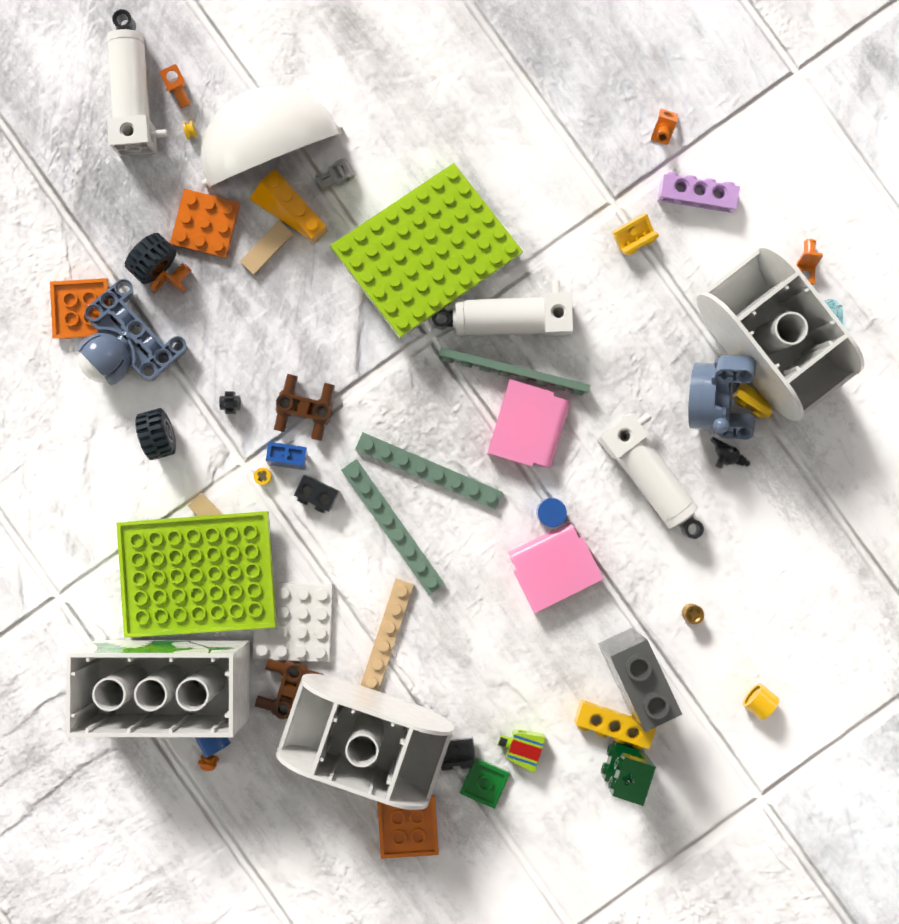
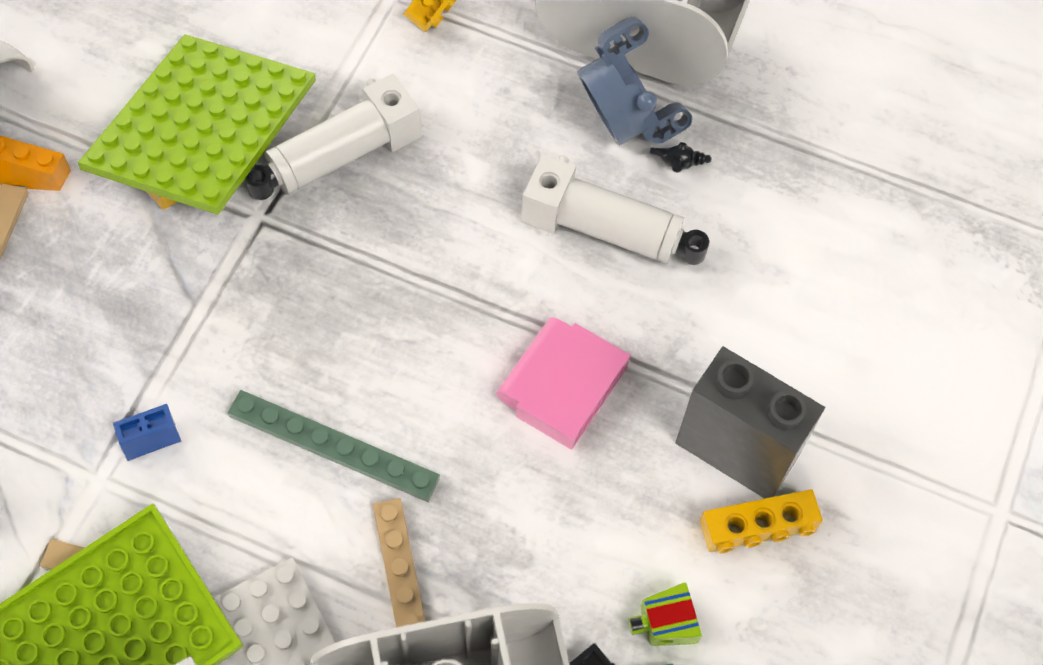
camera: 35 degrees left, 25 degrees down
(230, 402) = (37, 408): black gear -> none
(268, 475) = (122, 468): yellow bush -> none
(304, 407) = (140, 365): reddish brown piece -> none
(318, 489) = (211, 448): black brick -> none
(336, 174) = (49, 106): light grey connector -> none
(428, 470) = (340, 357): sand green plate -> none
(522, 373) = (379, 196): sand green plate -> none
(528, 425) = (432, 244): bright pink piece -> none
(551, 512) = (519, 320): blue piece -> none
(630, 774) = (821, 544): dark green plate -> none
(695, 616) = (763, 335): pearl gold wheel -> none
(751, 399) = (672, 91): yellow bracket -> none
(761, 701) = (911, 391): yellow piece -> none

